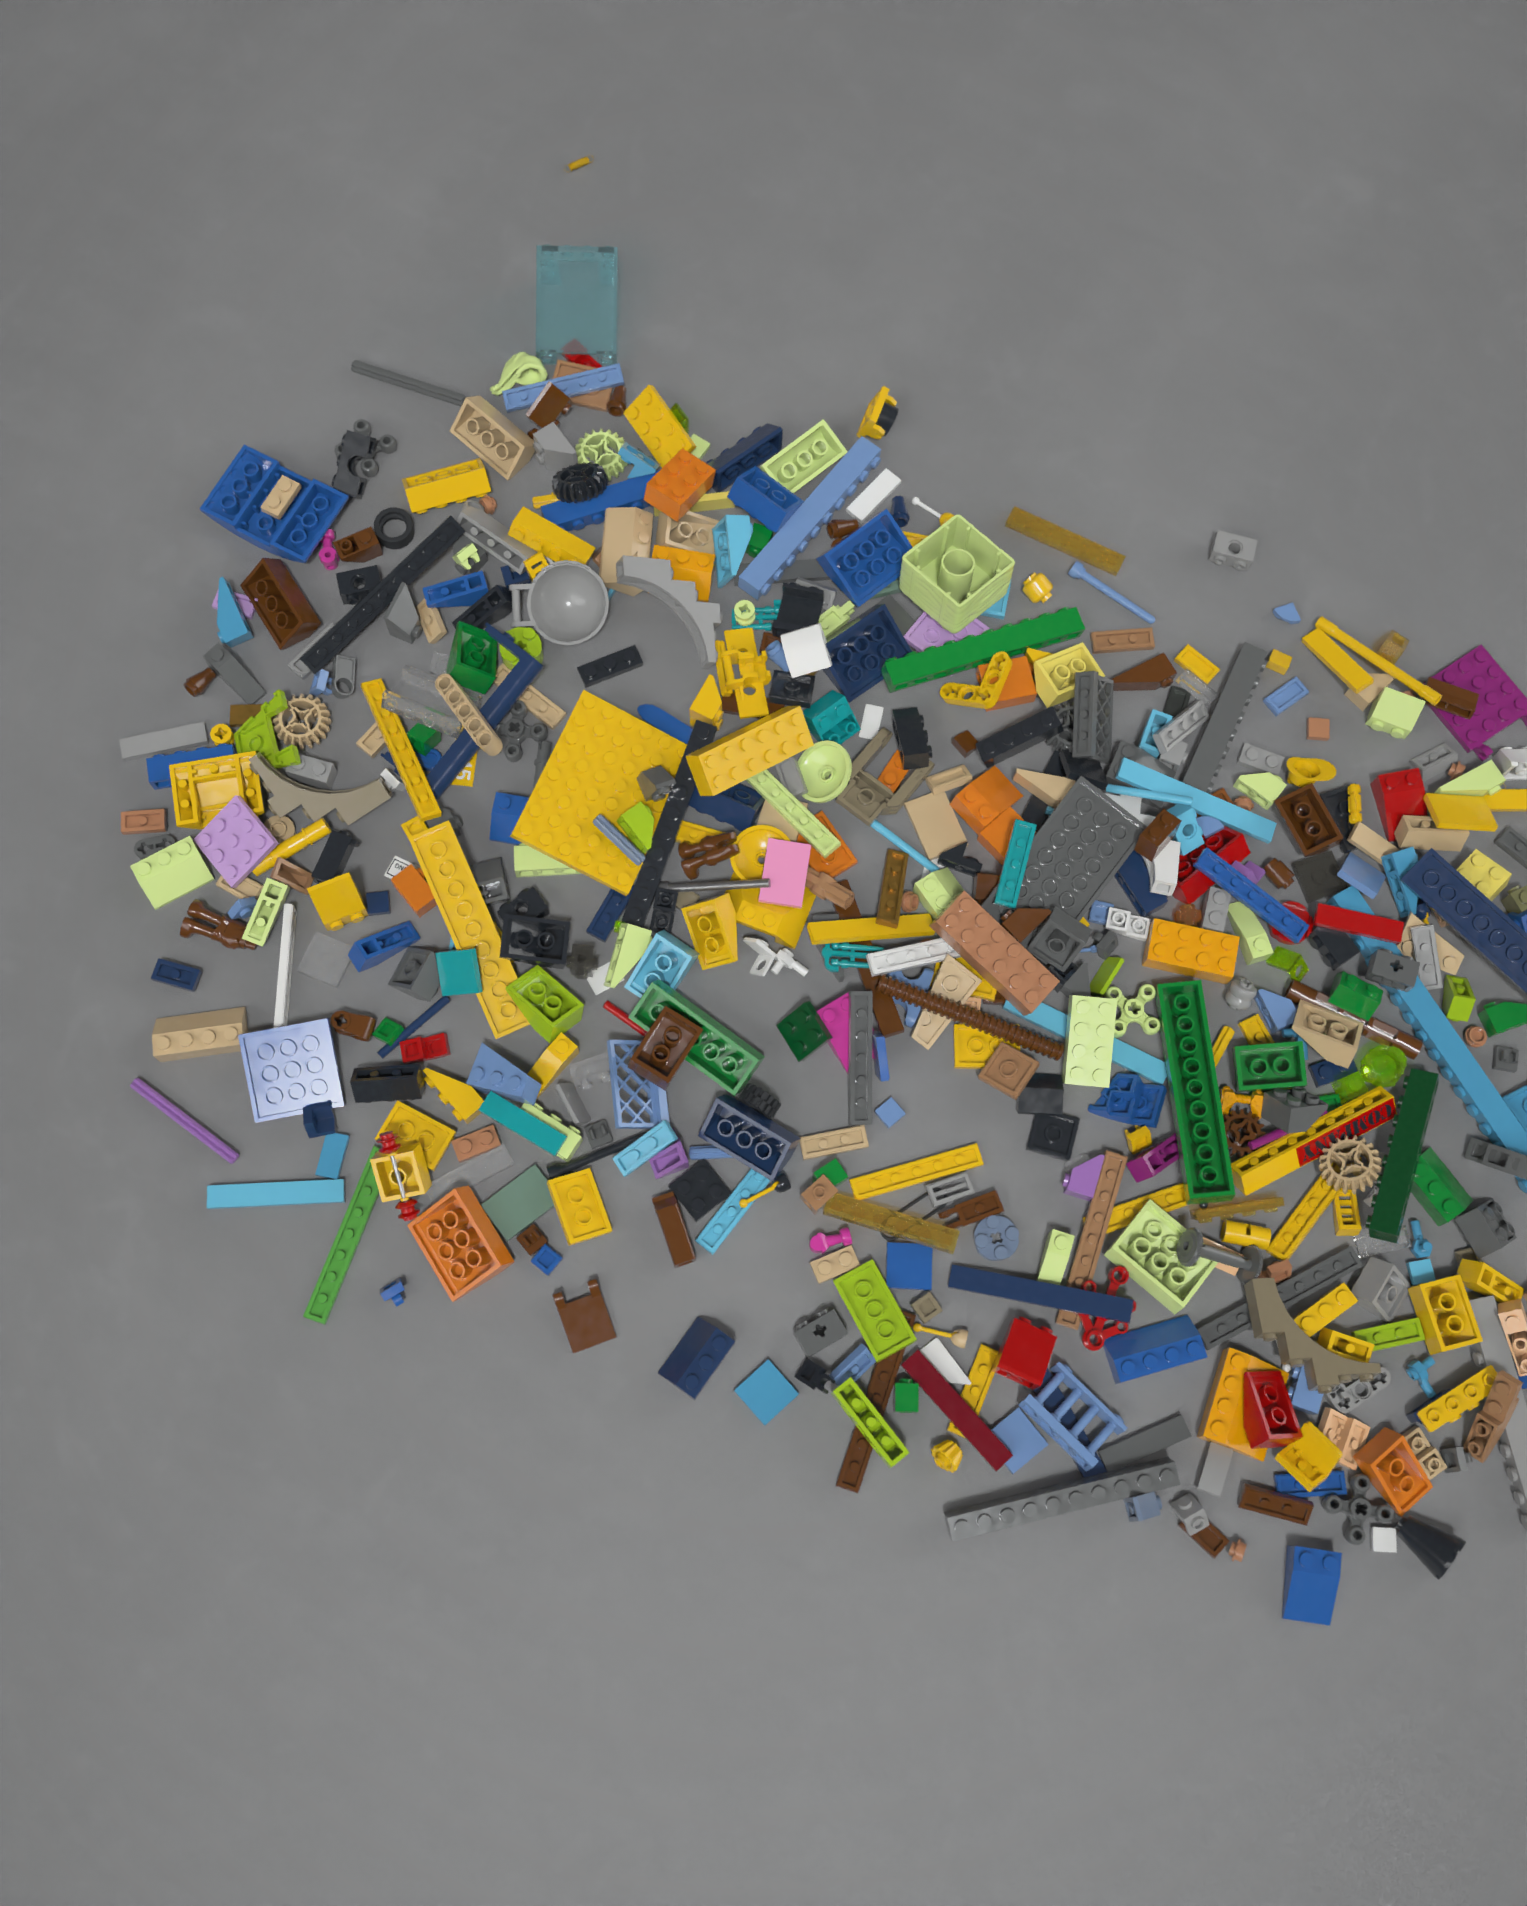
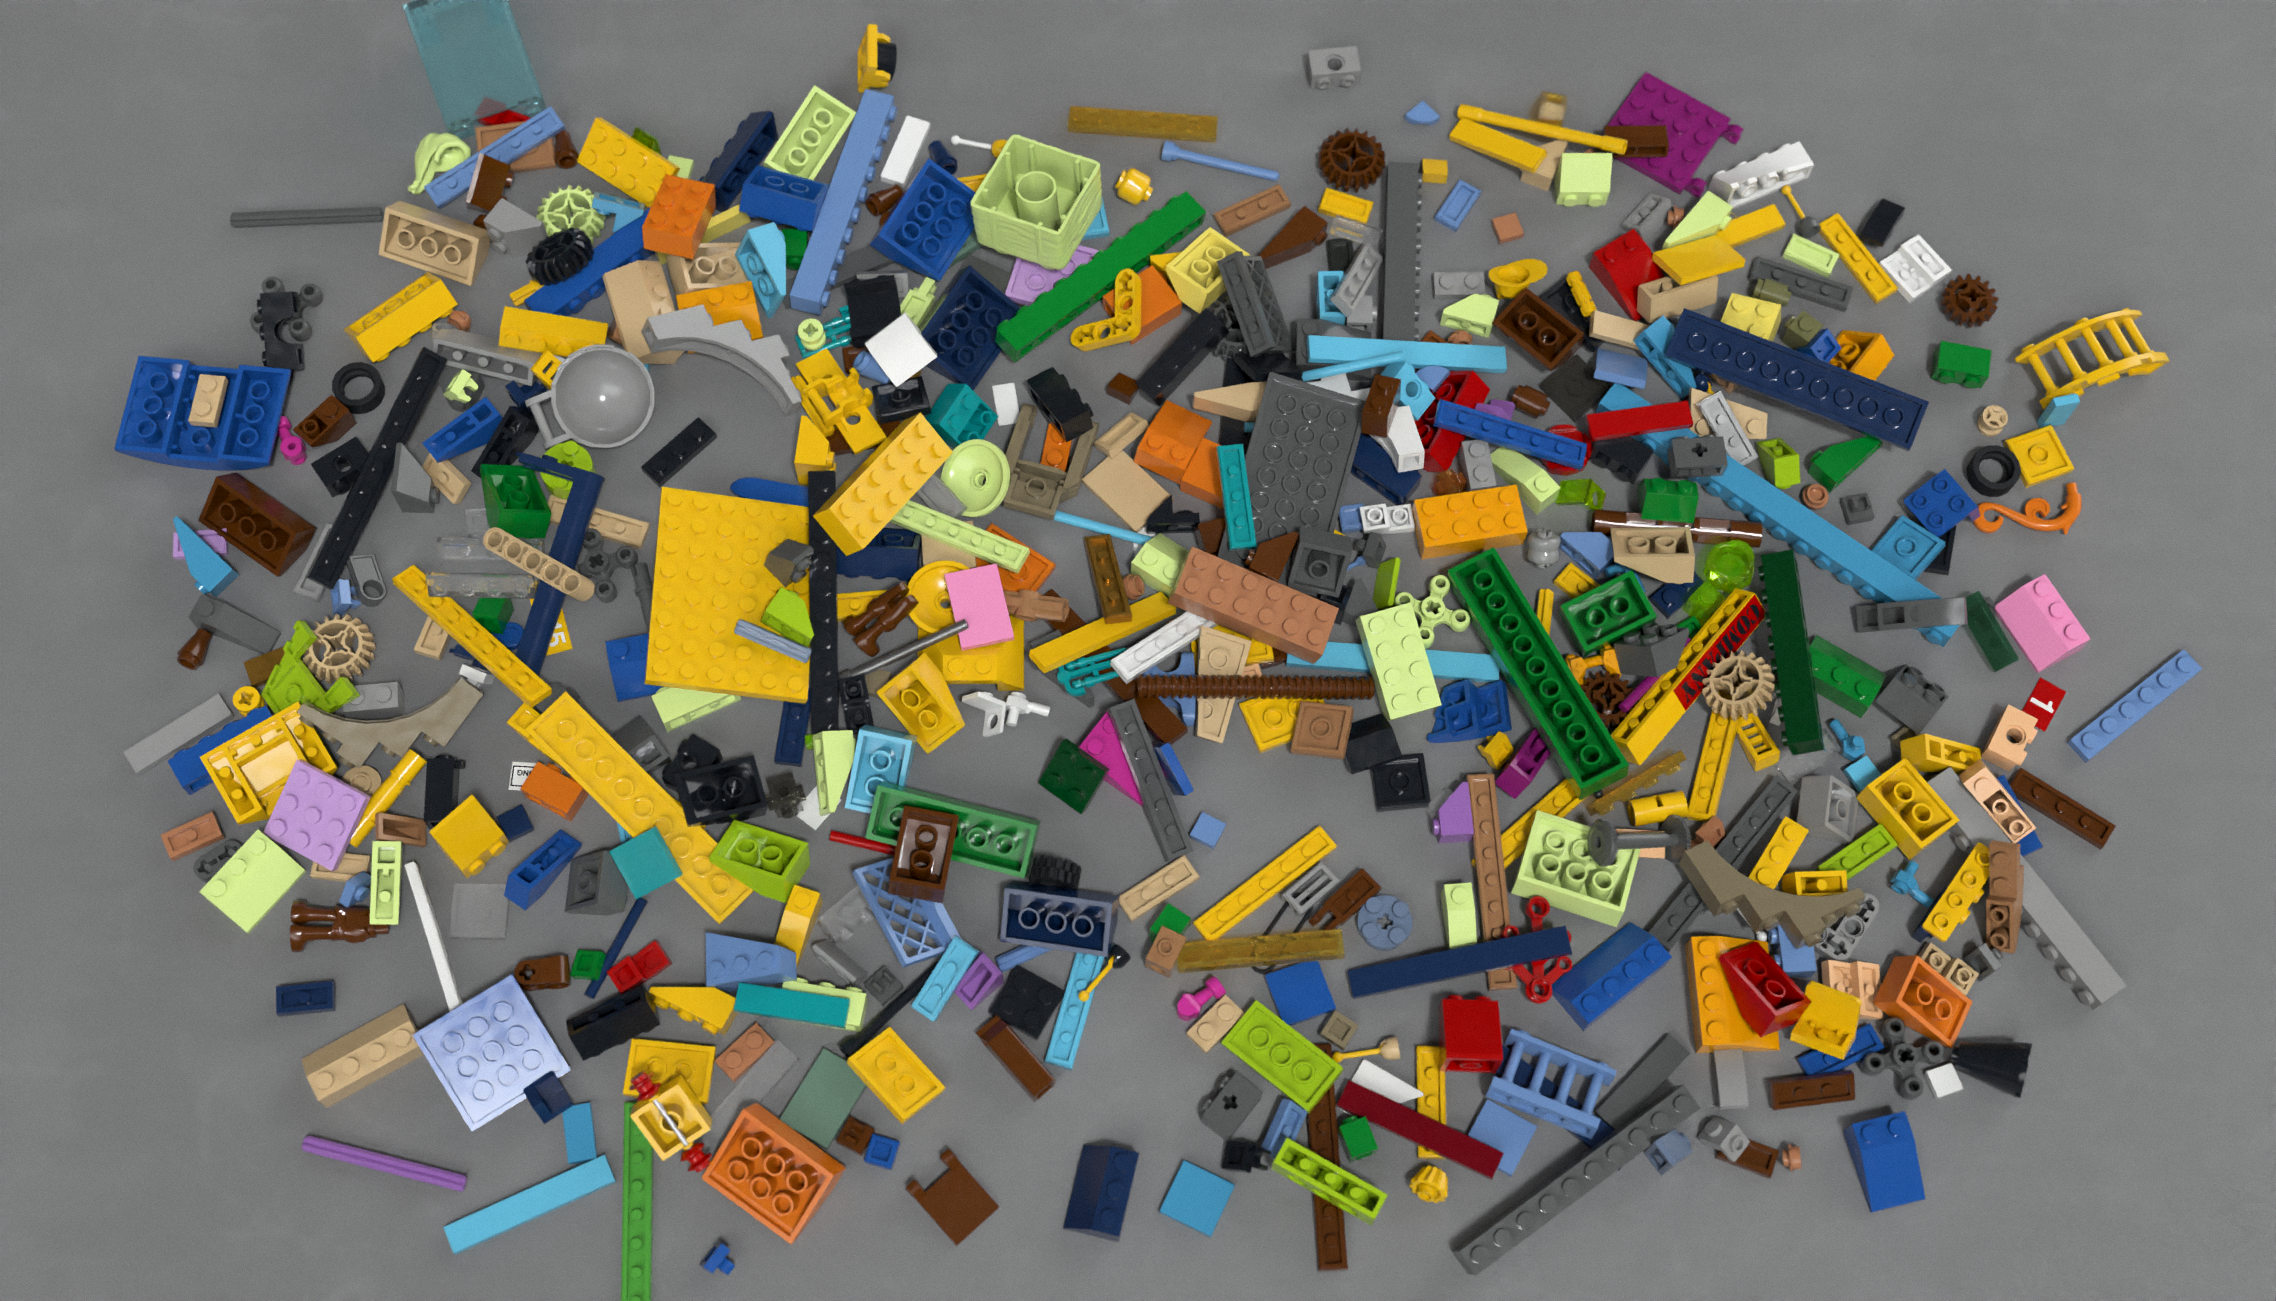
camera: 20 degrees left, 5 degrees down
(1229, 638) = (1336, 158): none -> reddish brown gear
(1509, 860) = (1771, 291): none -> olive brick

